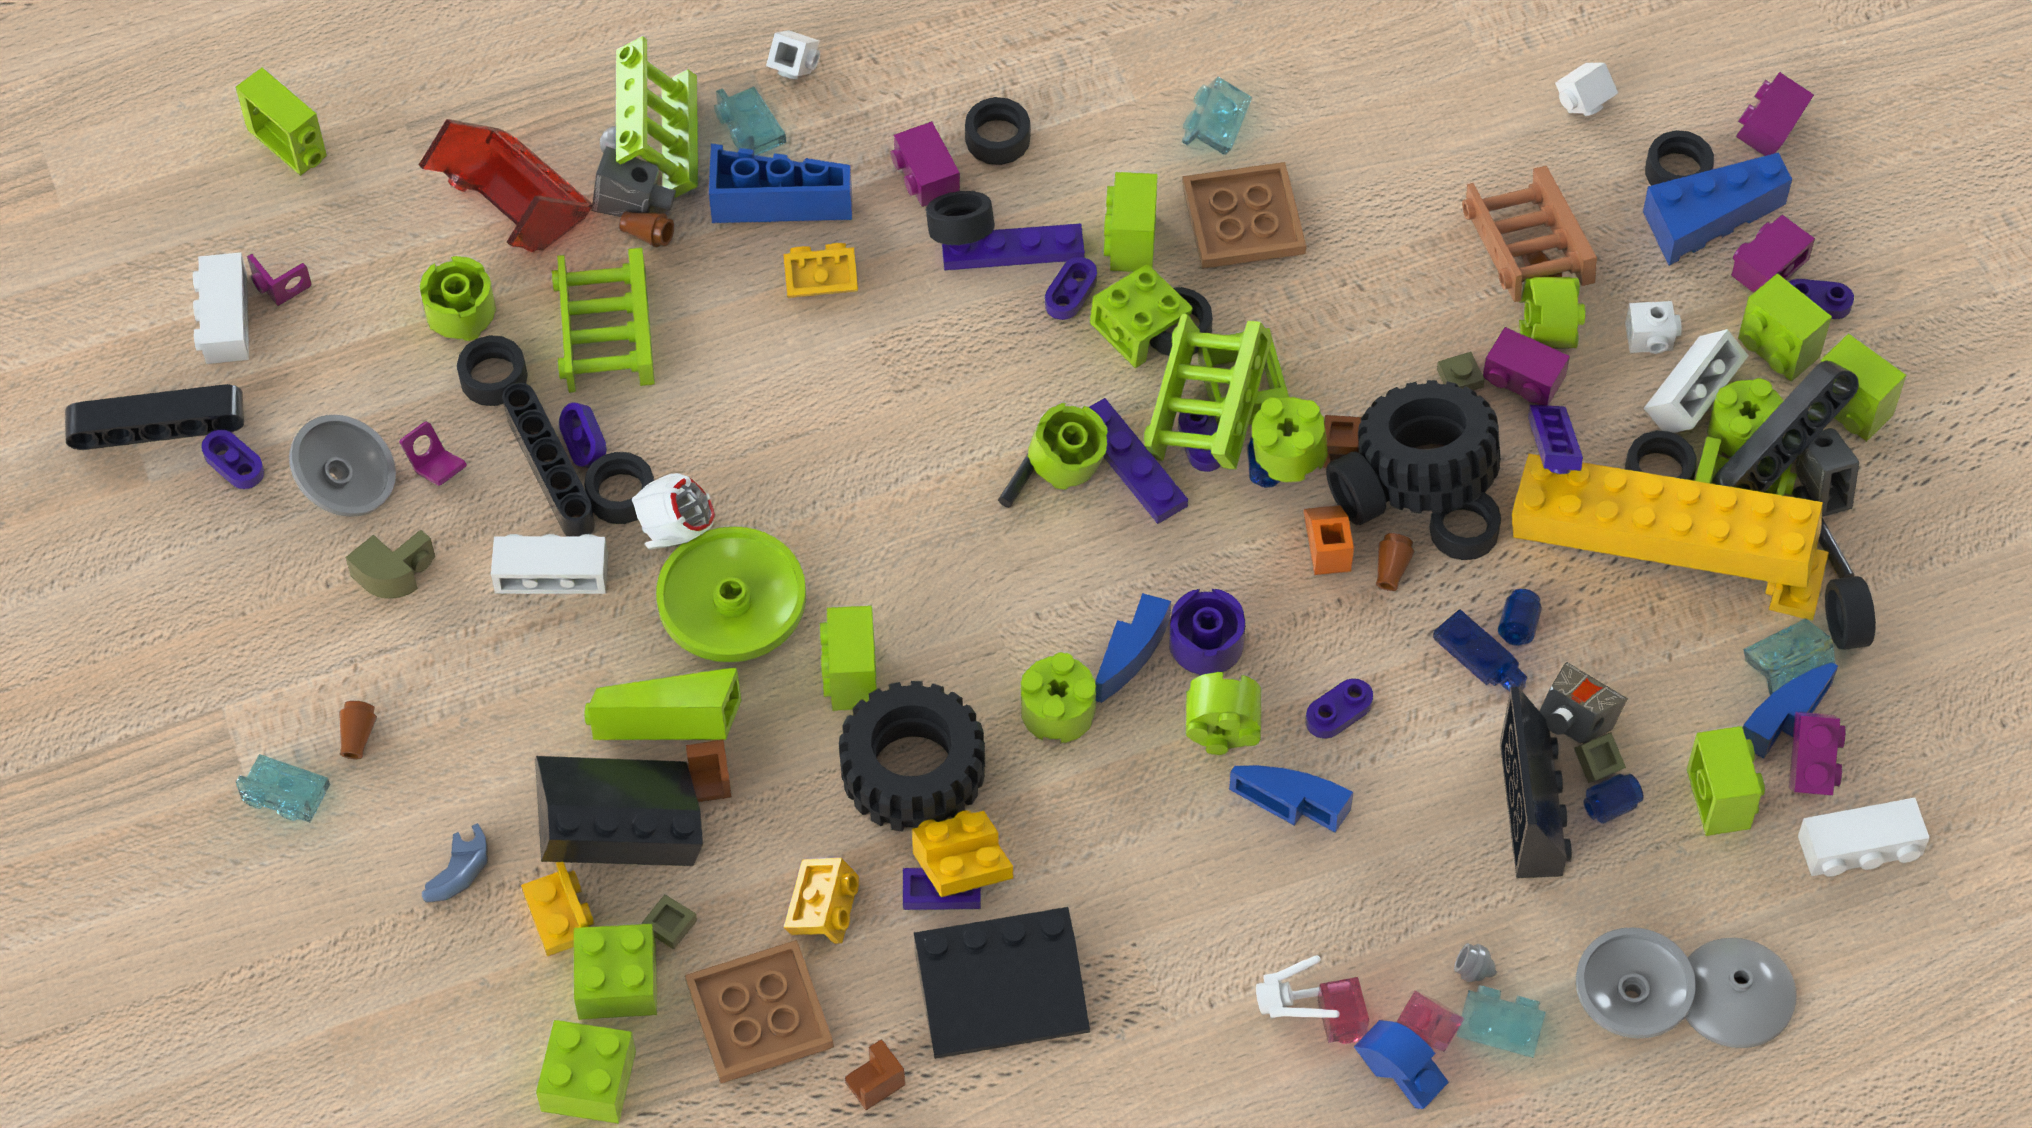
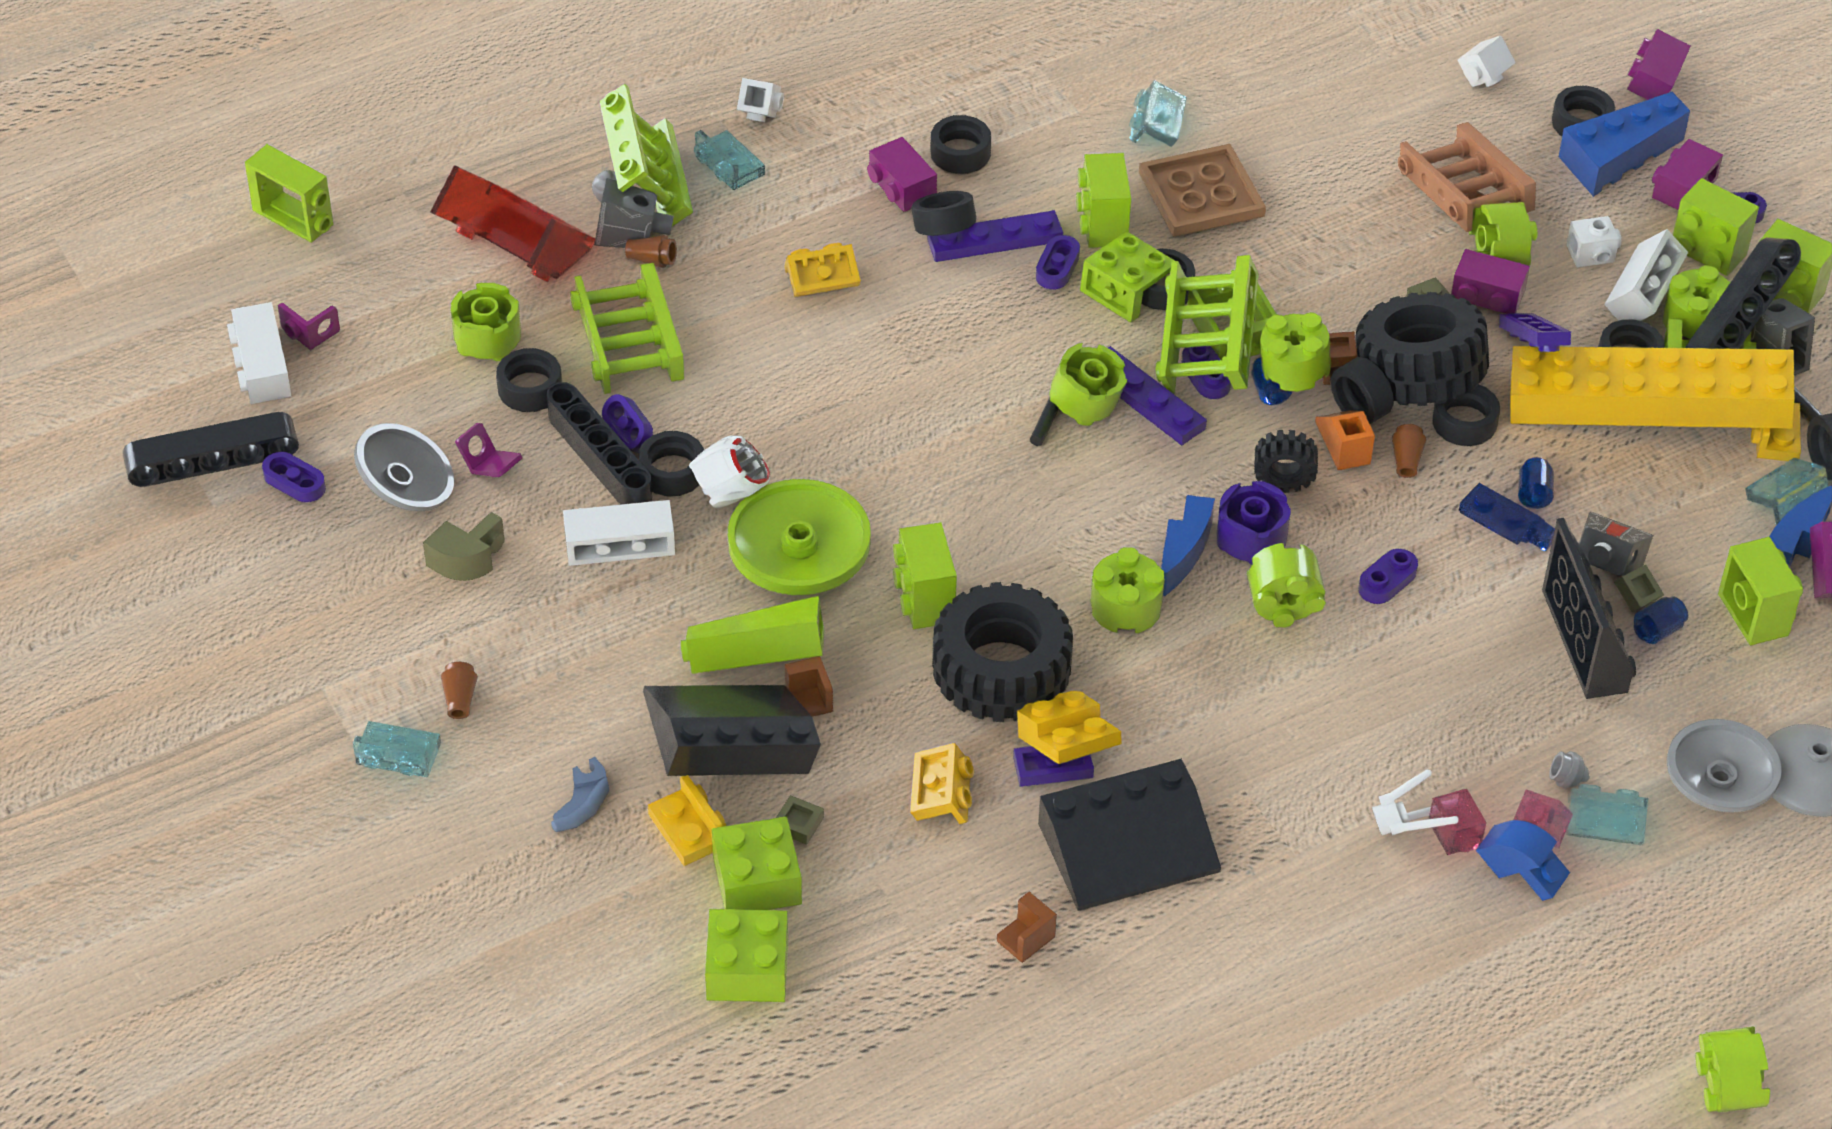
camera: 10 degrees left, 10 degrees down
(759, 1011) = (902, 886): medium nougat plate -> none
(776, 188) = (769, 206): blue wedge -> none
(1256, 563) = (1286, 447): none -> black tyre
(1292, 794) = (1364, 648): blue slope -> none

